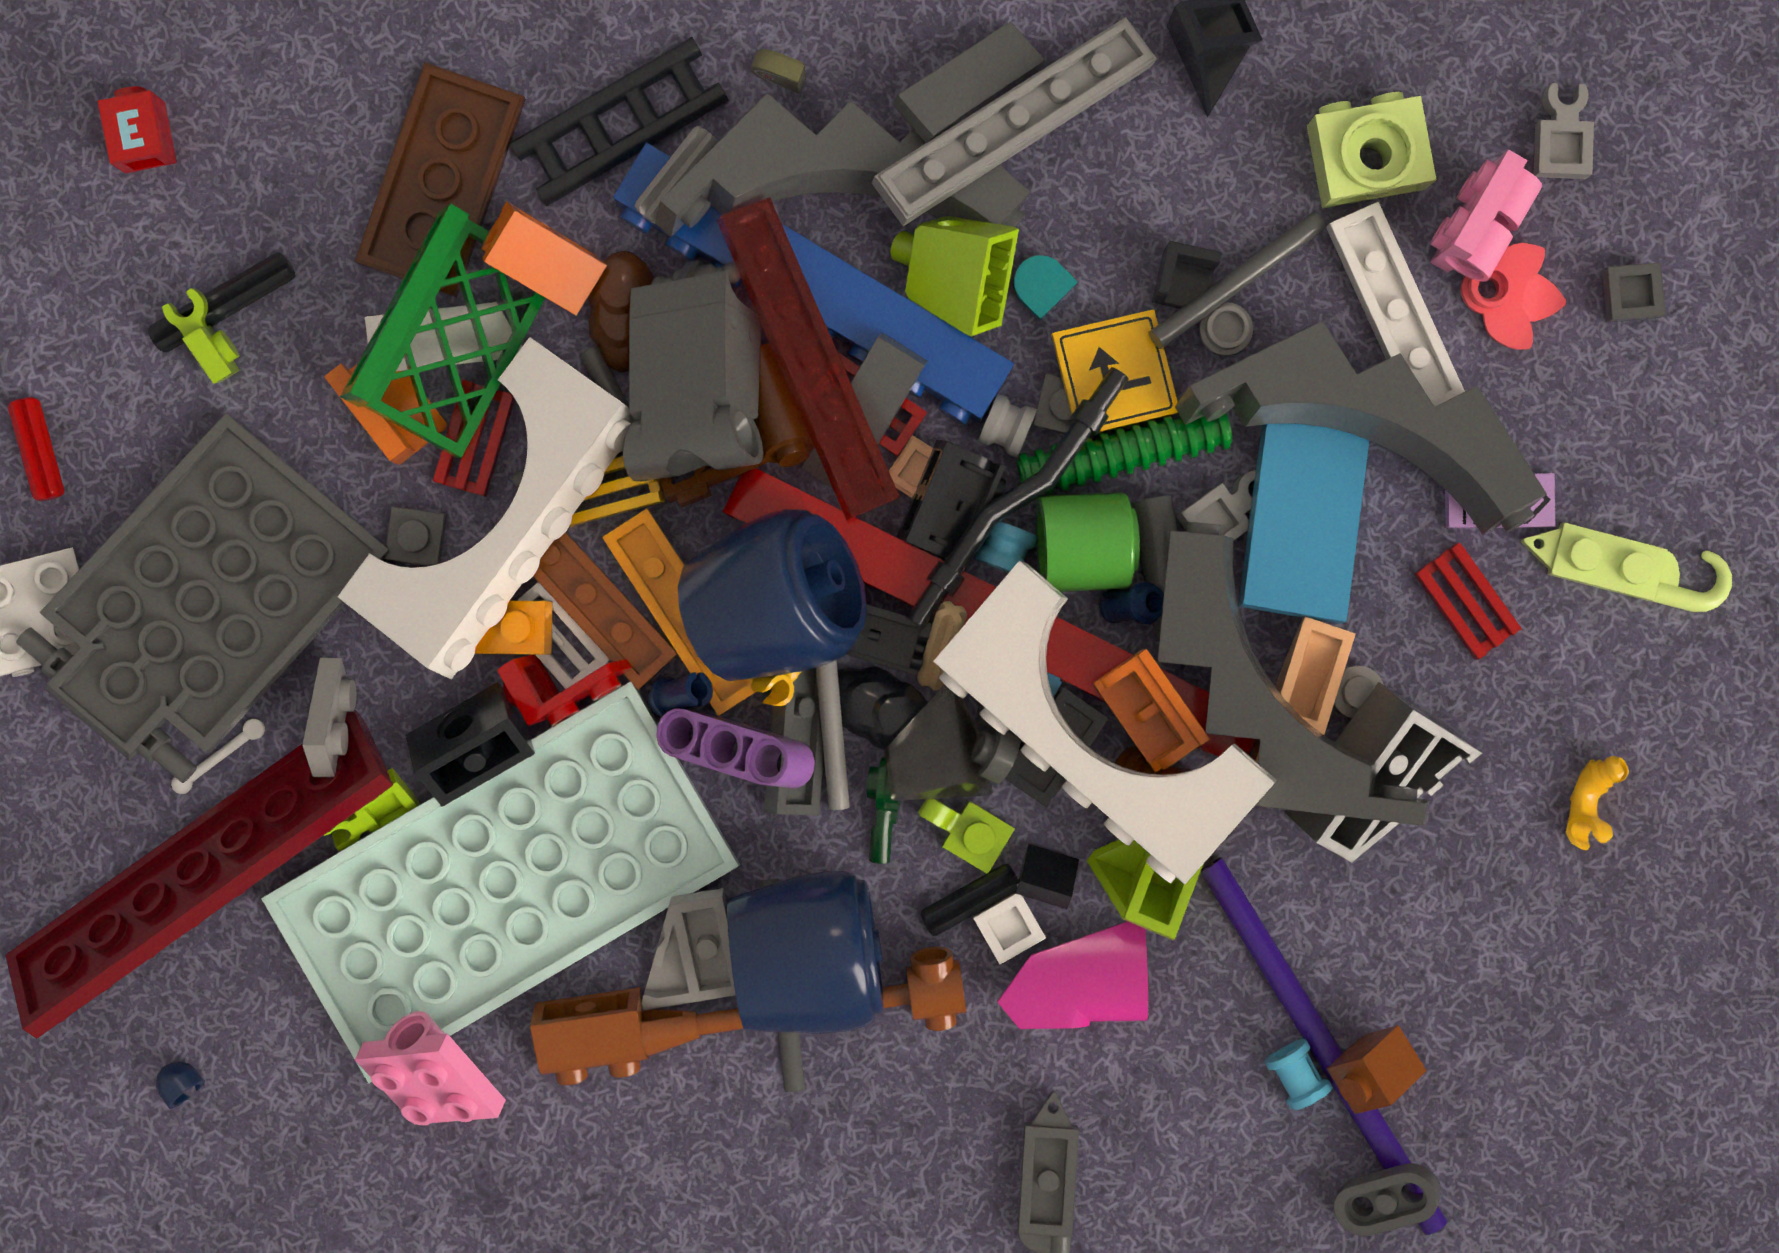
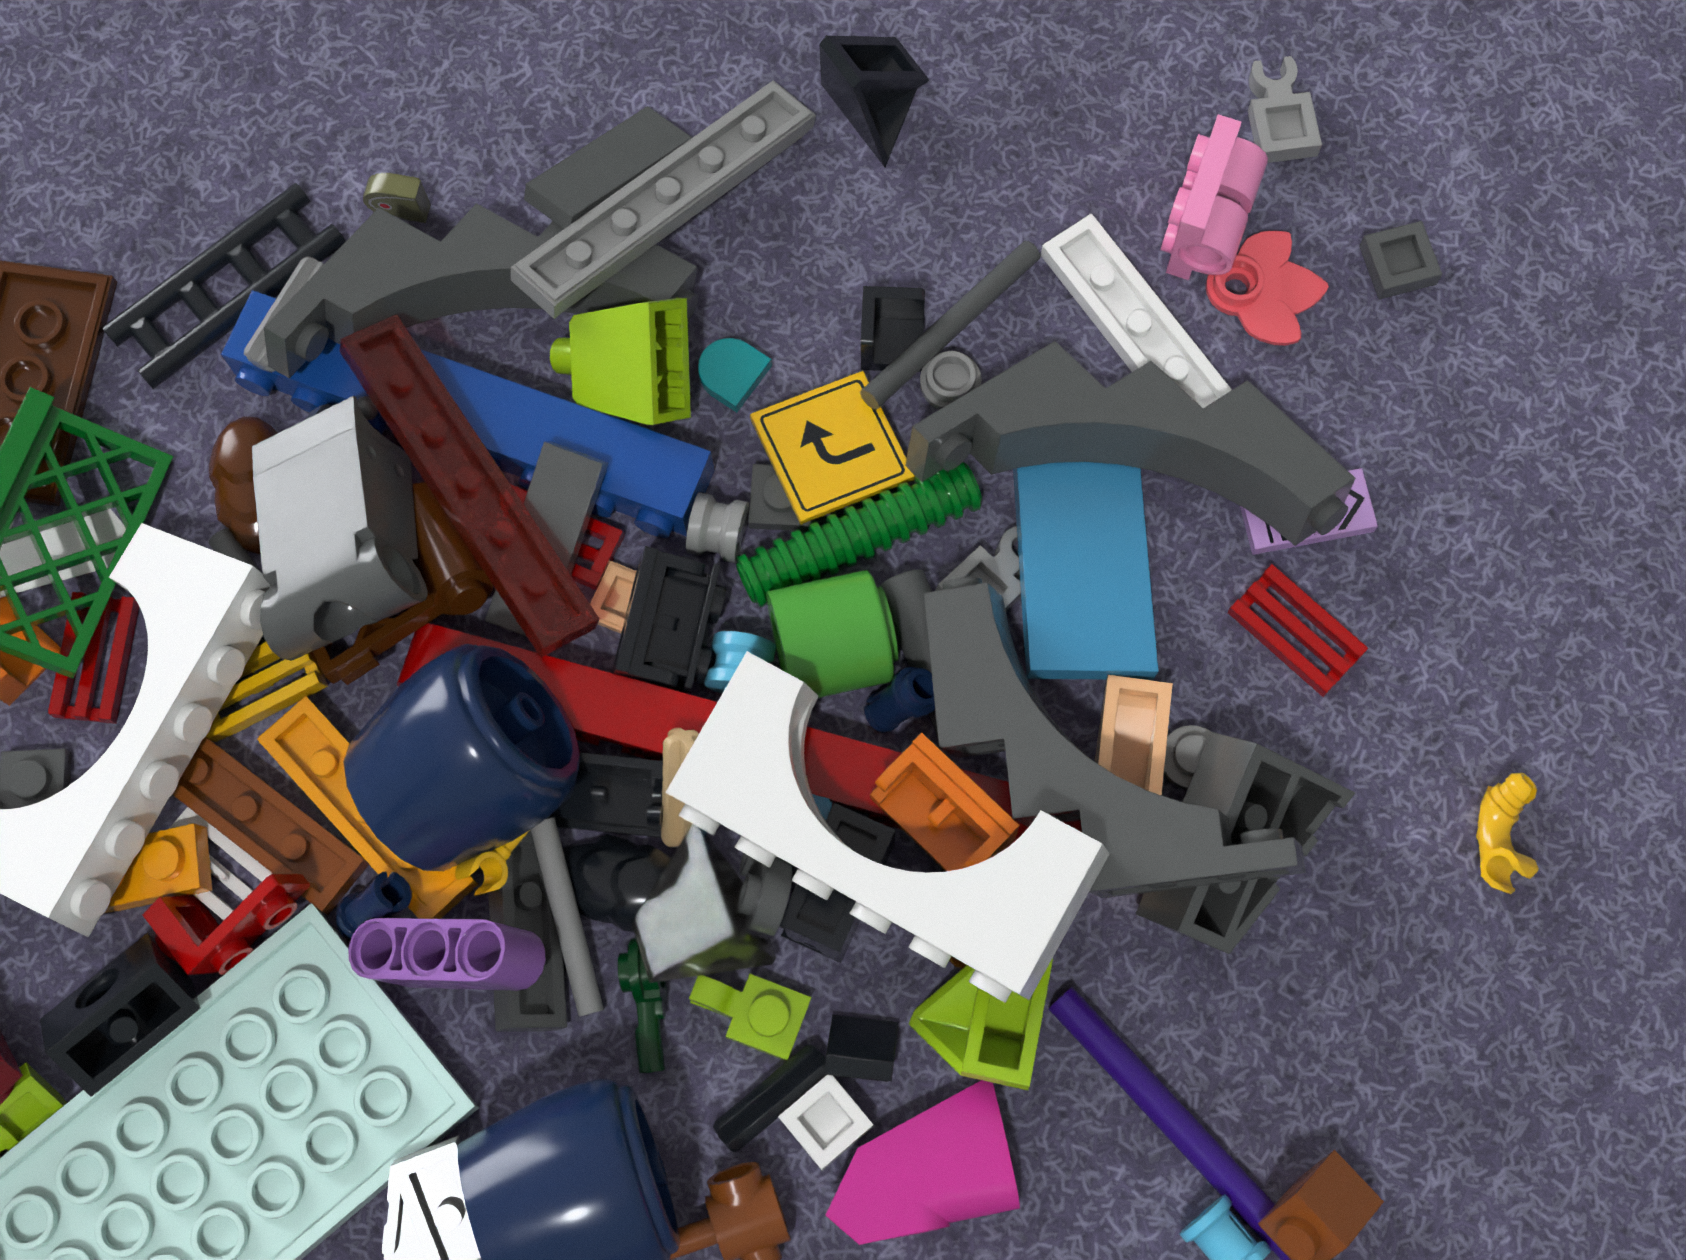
camera: 10 degrees left, 15 degrees down
(542, 258) = (148, 435): orange hinge -> none
(1087, 420) = (672, 699): black bar -> none
(1389, 126) = (1082, 136): yellowish green brick -> none
(1625, 567) = (1470, 558): yellowish green plate -> none

